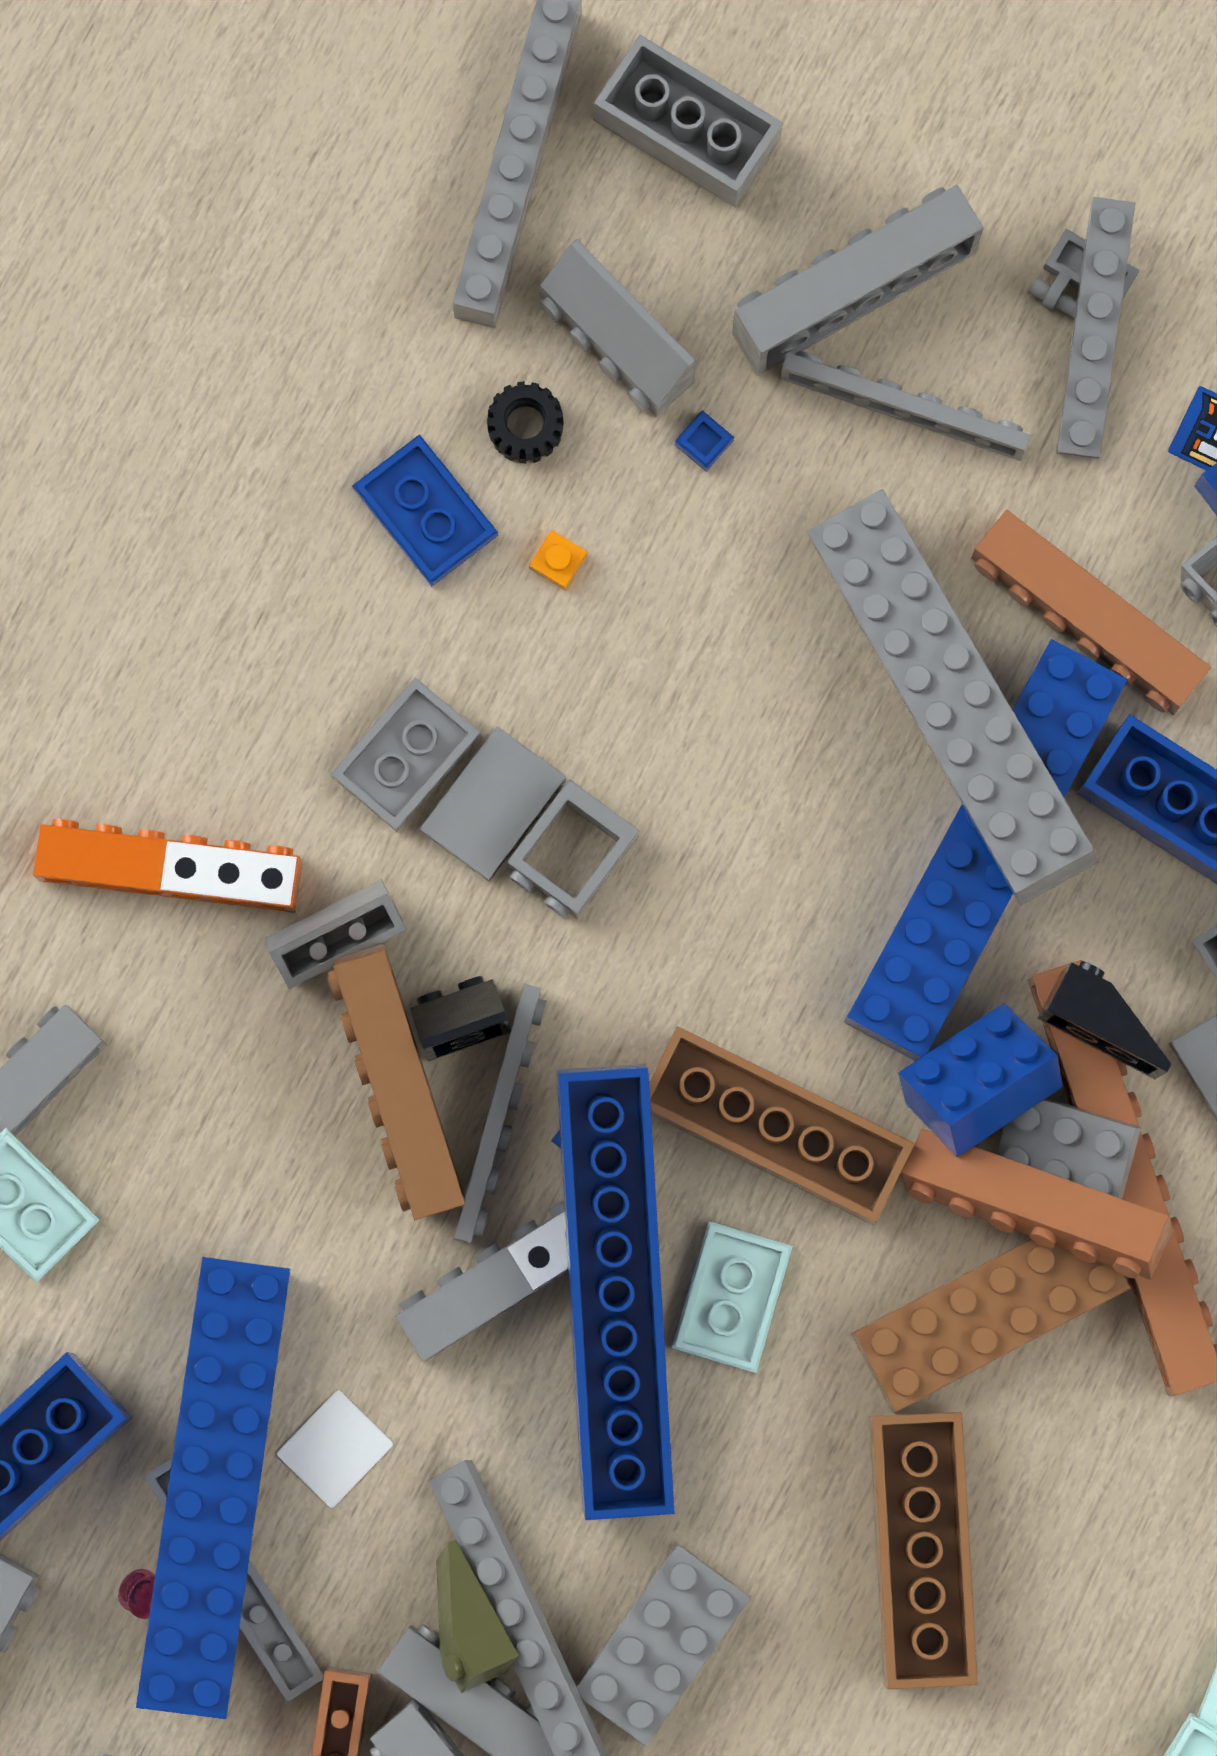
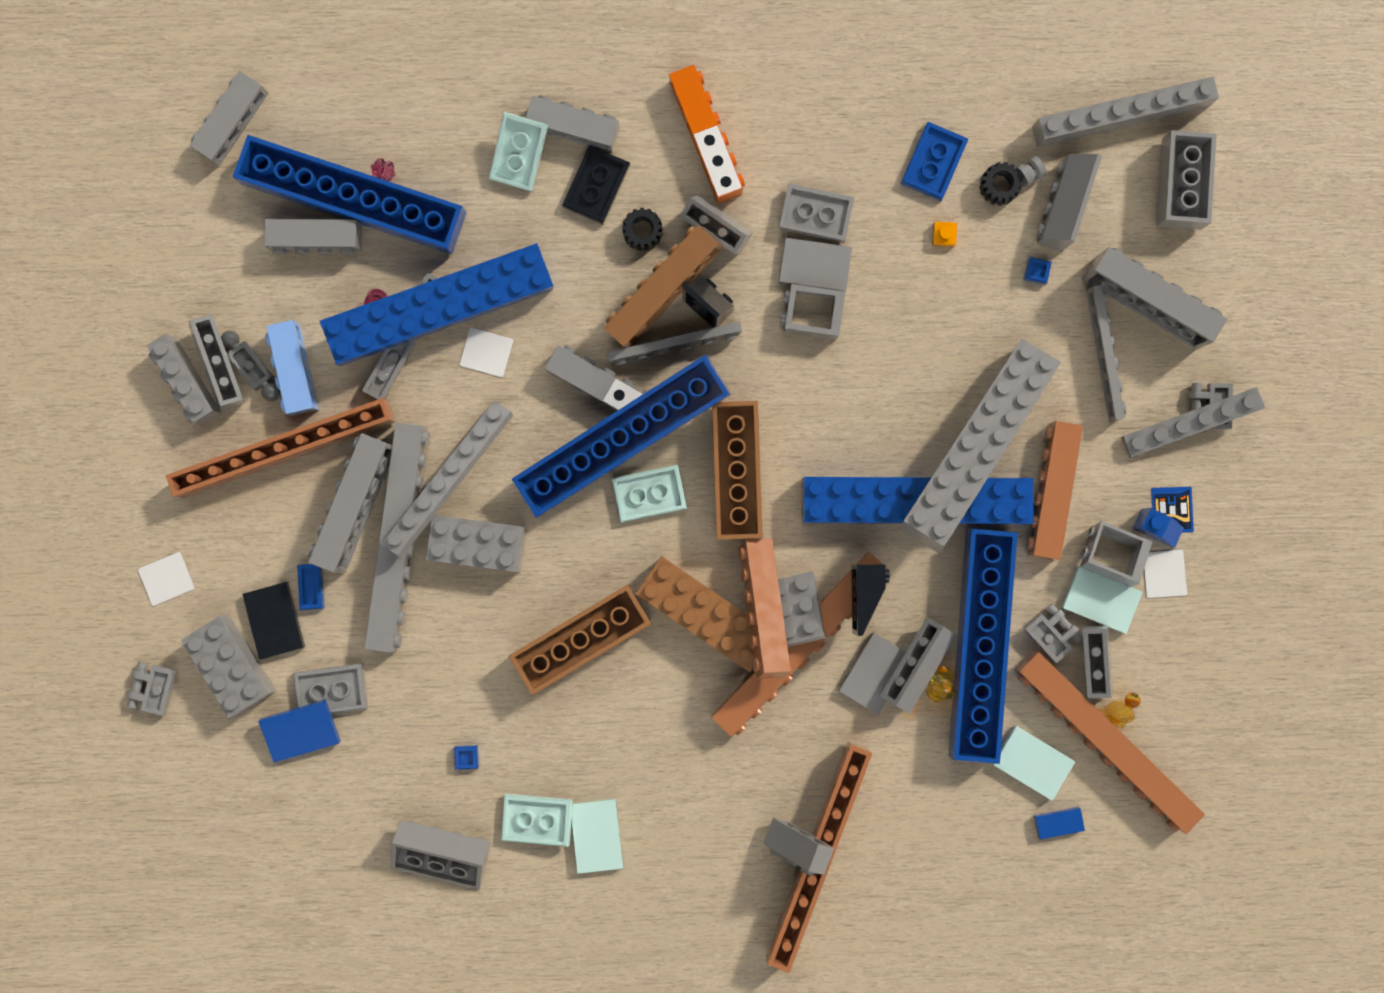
camera: 60 degrees right, 5 degrees up
(149, 1102) = (596, 184): none -> black tile
(250, 1046) = (642, 243): none -> black tyre
(470, 1633) = (434, 454): olive slope -> none
(532, 361) = (1032, 170): none -> light grey wheel
(980, 1079) = (808, 553): blue brick -> none

